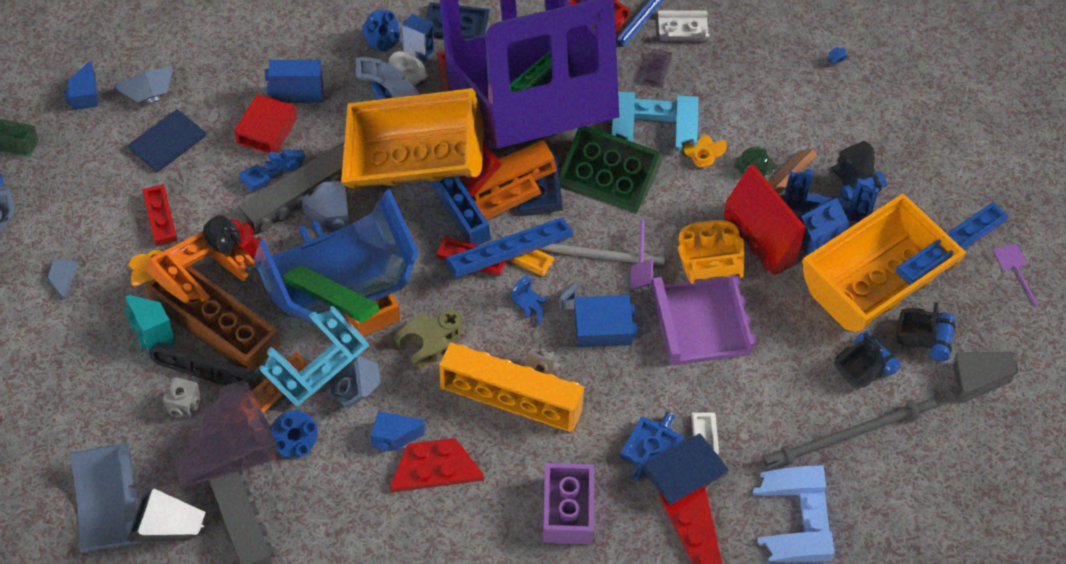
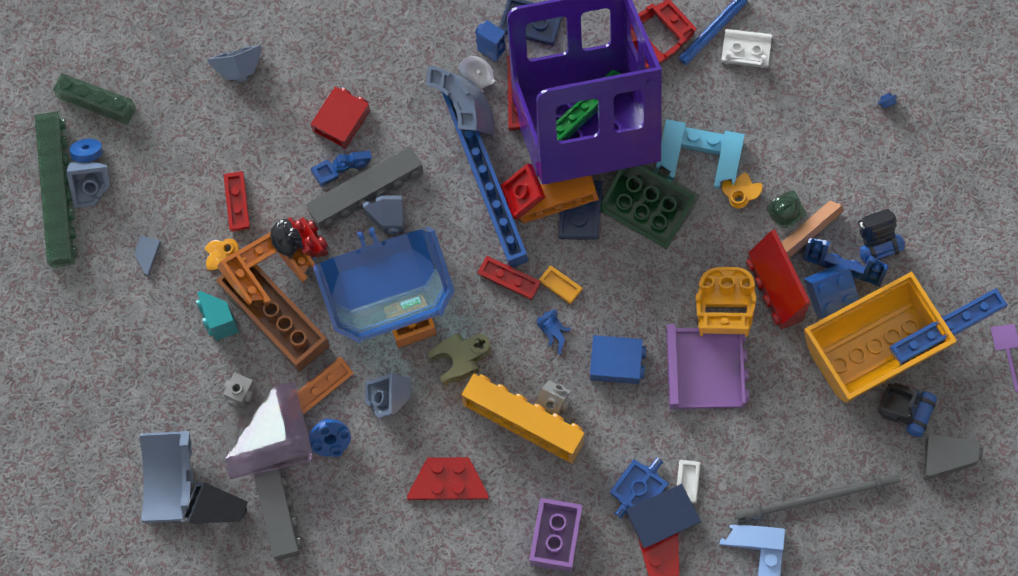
camera: 15 degrees right, 15 degrees up
(82, 88) = (179, 59): blue slope -> none
(167, 140) = (250, 122): dark blue tile -> none
(201, 365) = (260, 361): black piece -> none
(295, 81) = (371, 76): blue brick -> none
(301, 385) = (382, 364): medium azure wedge -> none
(331, 293) = (375, 312): green tile -> none
(381, 30) = (458, 27): blue plate -> none
(395, 431) = (417, 445): blue slope -> none
(413, 139) = (467, 166): light orange container -> none
(508, 197) = (548, 222): orange plate -> none
(508, 247) = (542, 275): blue tile -> none
(567, 296) = (589, 329): sand blue slope -> none
(602, 254) = (661, 299): light grey bar -> none
(643, 271) = (660, 312): medium lavender piece -> none
(657, 67) = (713, 93): clear purple plate -> none
(864, 361) = (845, 429): black piece -> none

